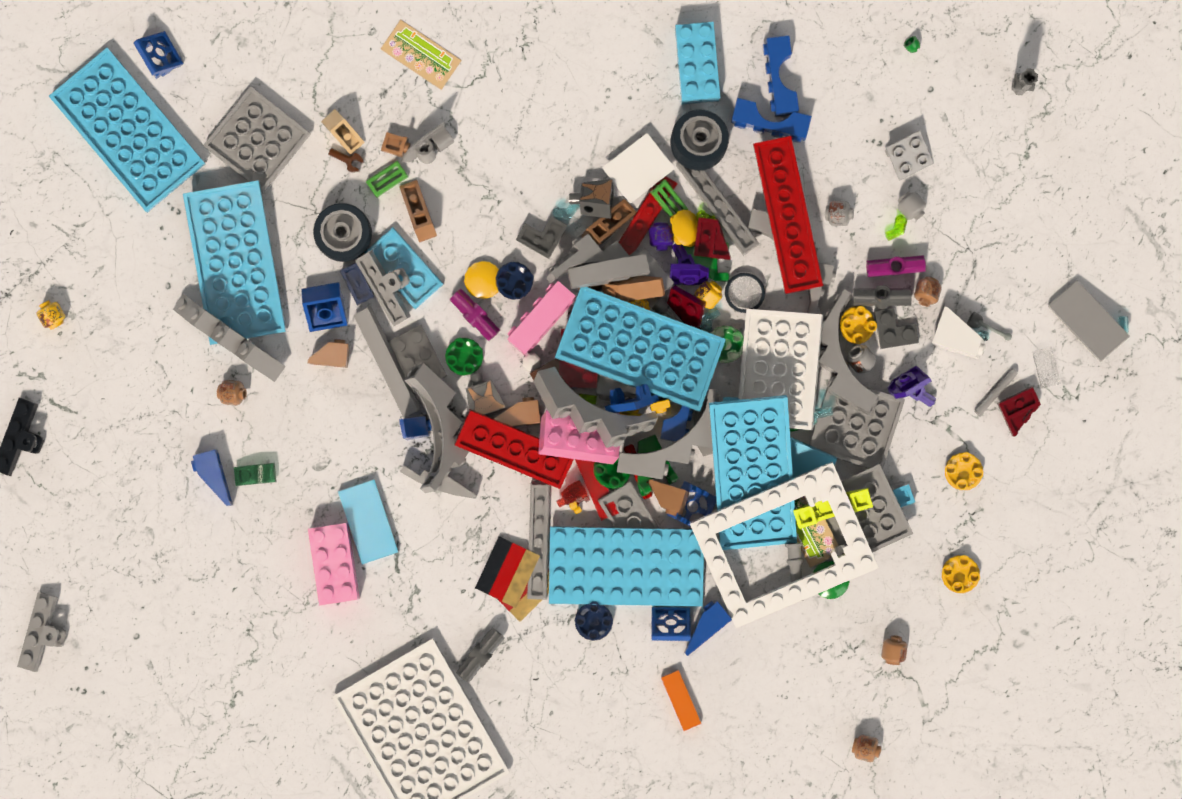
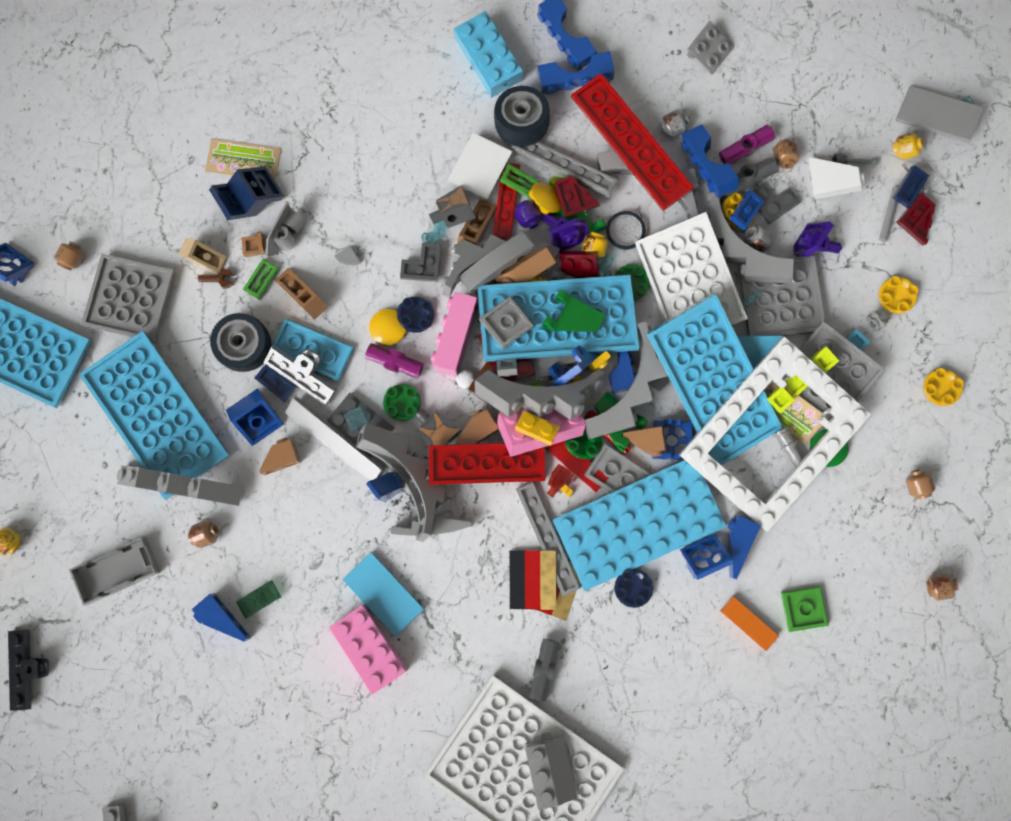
camera: 20 degrees left, 5 degrees down
(137, 388) = (114, 571): none -> light grey piece
(219, 74) = (69, 255): none -> medium nougat head
(410, 92) = (246, 193): none -> dark blue bracket
(416, 353) = (356, 418): none -> clear light blue tile
(444, 744) = (550, 772): none -> light grey slope
(476, 196) = (347, 257): none -> light grey tile
(572, 373) = (506, 367): none -> light grey plate
(573, 441) = (537, 428): none -> yellow plate
(591, 332) = (506, 322): none -> light grey tile
(655, 355) = (574, 316): none -> green flag
(736, 711) = (804, 609): none -> bright green tile
(851, 286) = (719, 177): none -> blue arch
(863, 327) = (746, 209): none -> blue plate
(898, 229) = (732, 114): clear neon green arm -> none
(911, 206) = (734, 88): light grey head -> none
(931, 486) = (877, 320): none -> light grey plate
(1026, 377) = (910, 186): none -> dark blue plate
(1043, 337) = (908, 146): none -> yellow head

